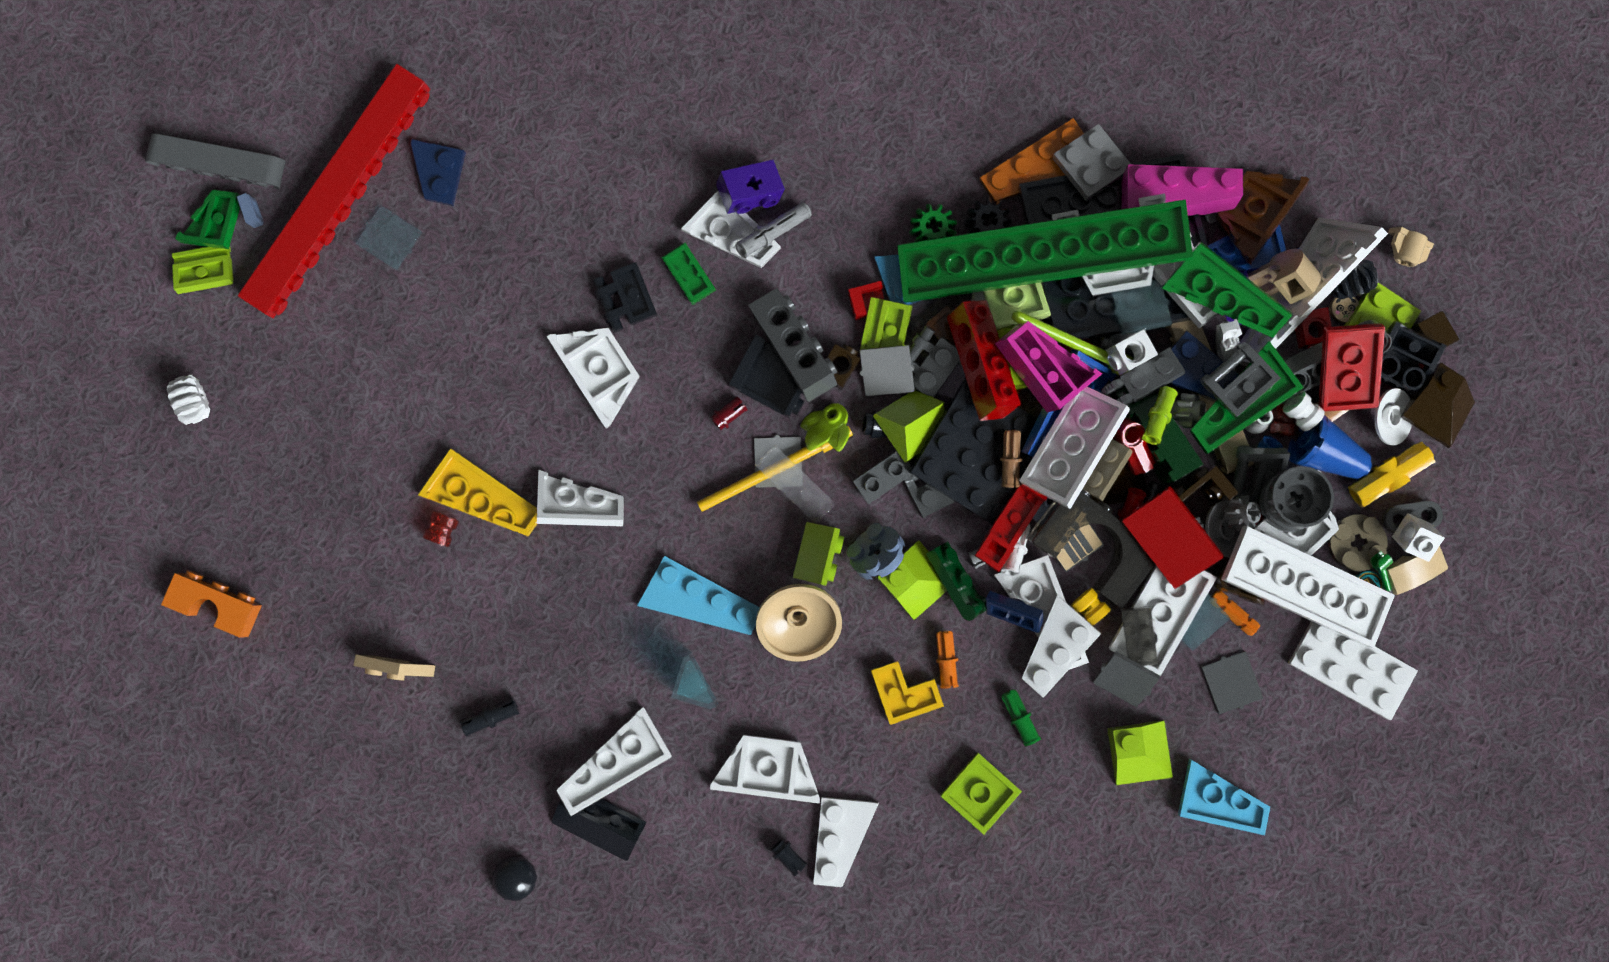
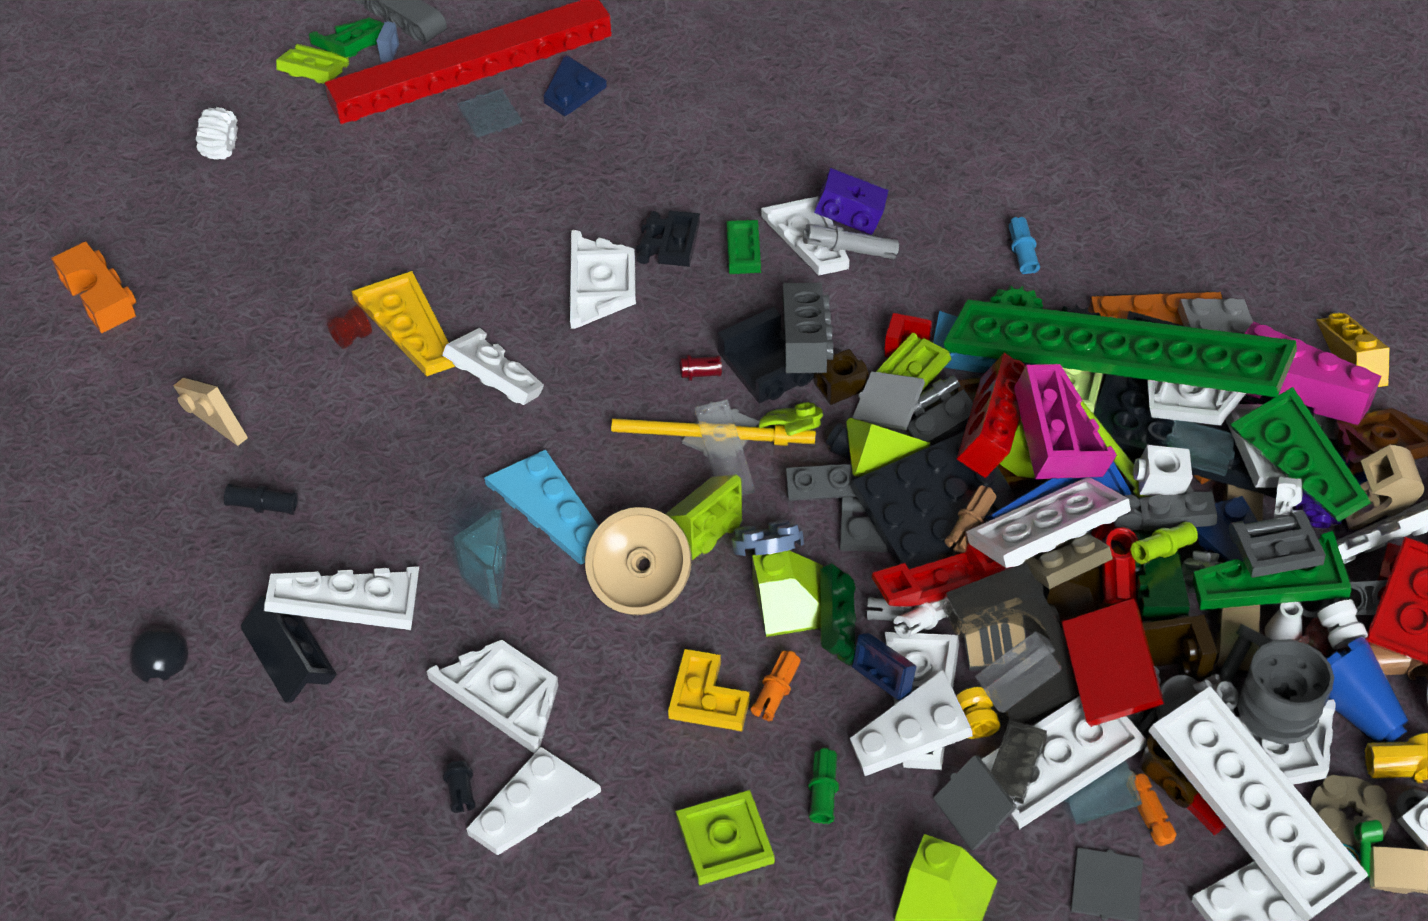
camera: 30 degrees right, 35 degrees down
(902, 150) = (1023, 245): none -> dark azure axle
(1112, 575) = (1019, 671): none -> clear panel
(1198, 126) = (1355, 344): none -> yellow slope

